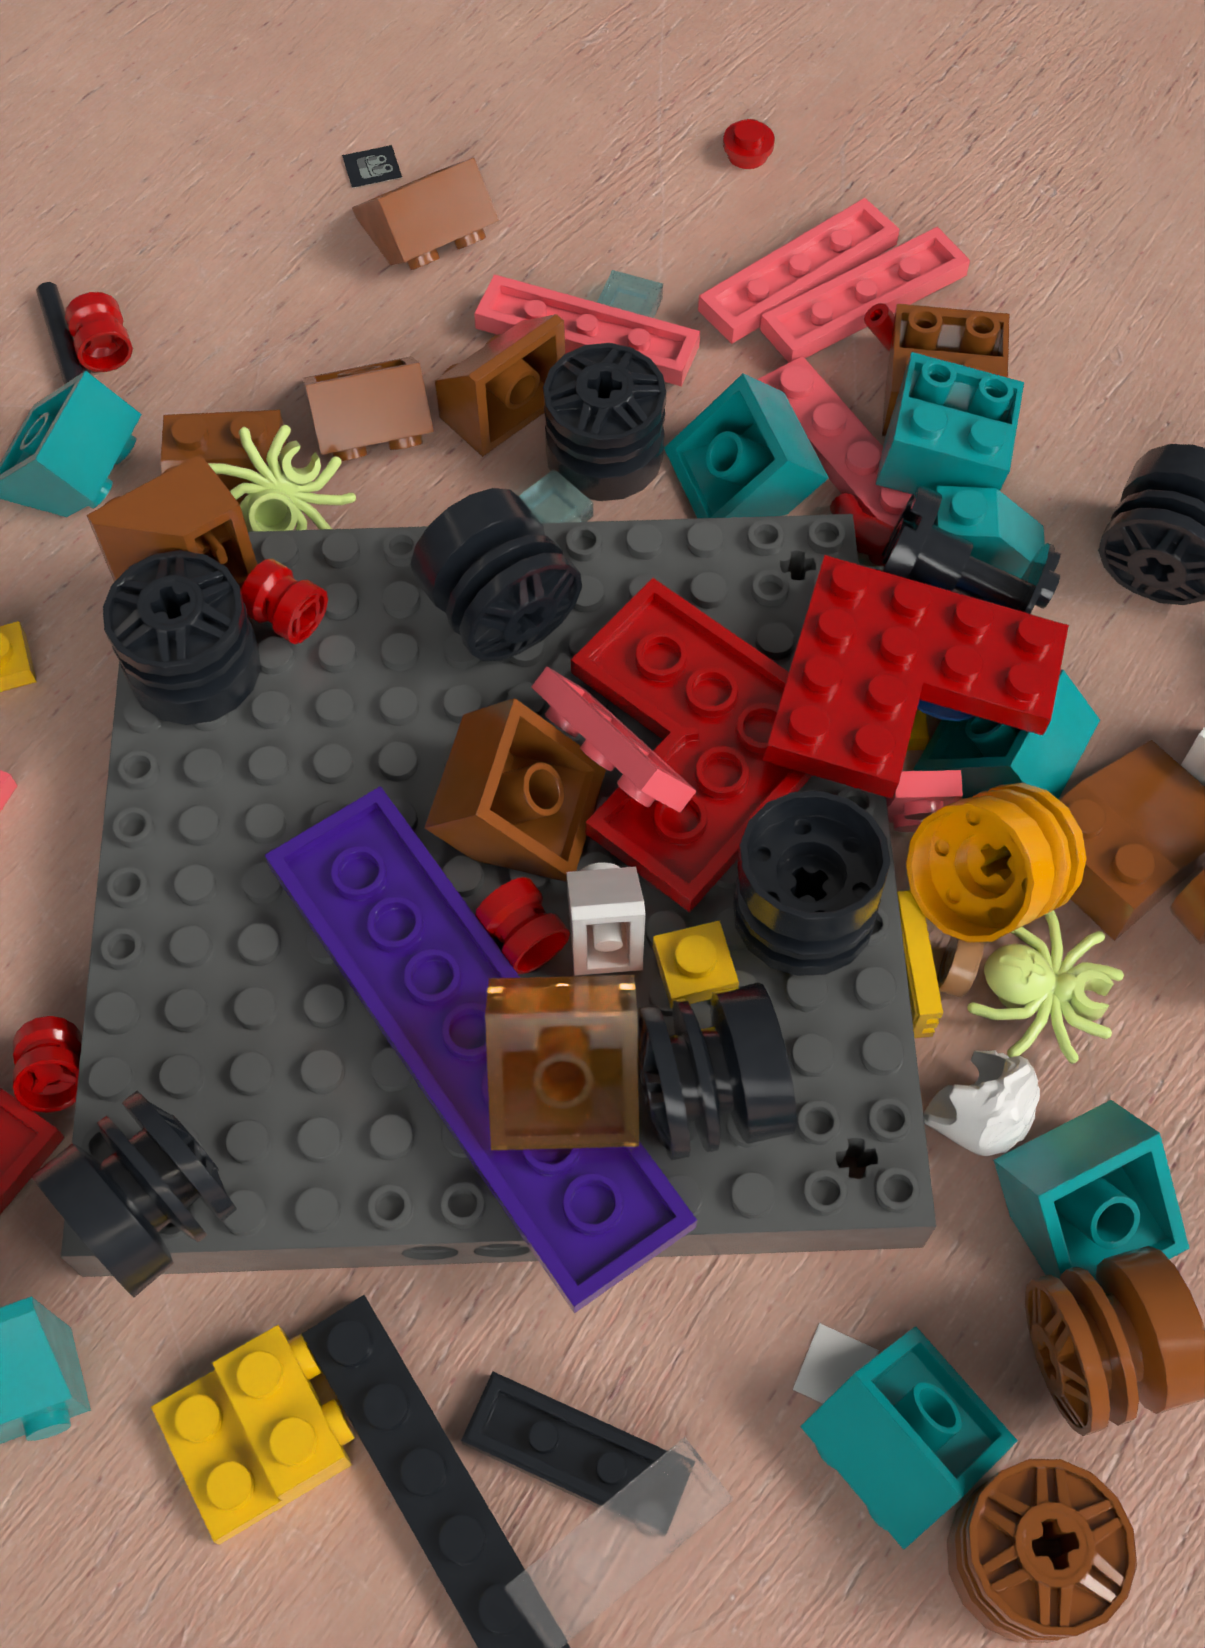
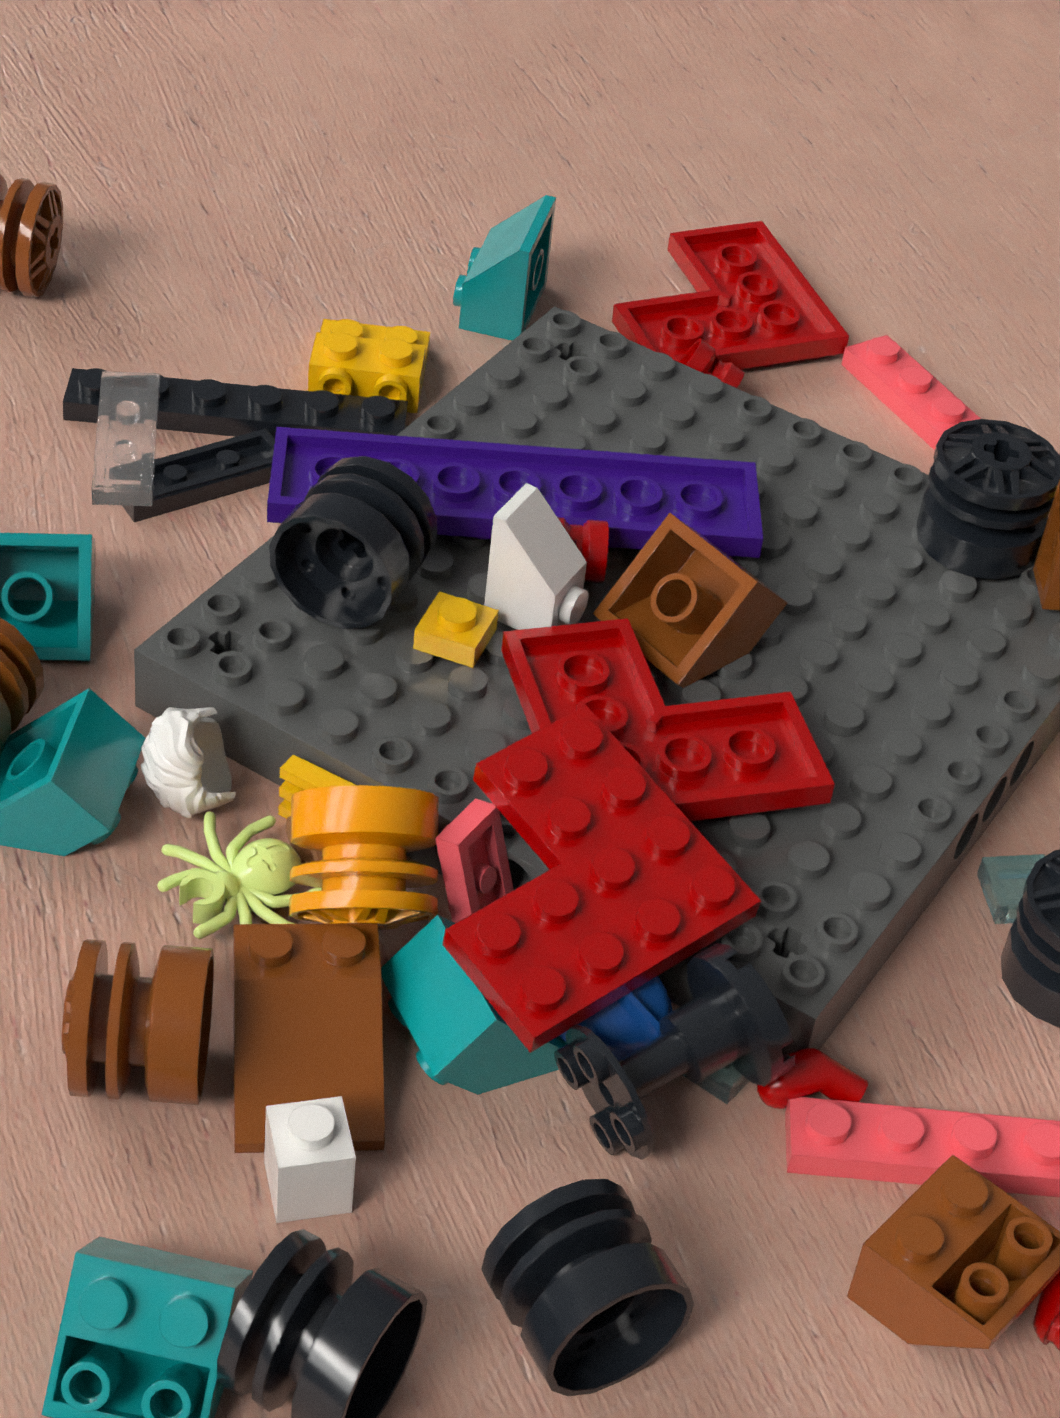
camera: 120 degrees right, 20 degrees down
(135, 1192) = (547, 290): black wheel -> none
(288, 604) = (1001, 580): red wheel -> none
(495, 574) = (916, 670): black wheel -> none
(562, 1062) = (466, 470): clear orange slope -> none
(611, 743) = (680, 644): coral plate -> none
(746, 455) = (968, 1045): teal slope -> none
(809, 882) = (445, 673): black wheel -> none
(831, 1363) = (115, 615): white sticker -> none
(950, 427) = (855, 1160): teal slope -> none
(993, 523) = (720, 1158): teal slope -> none

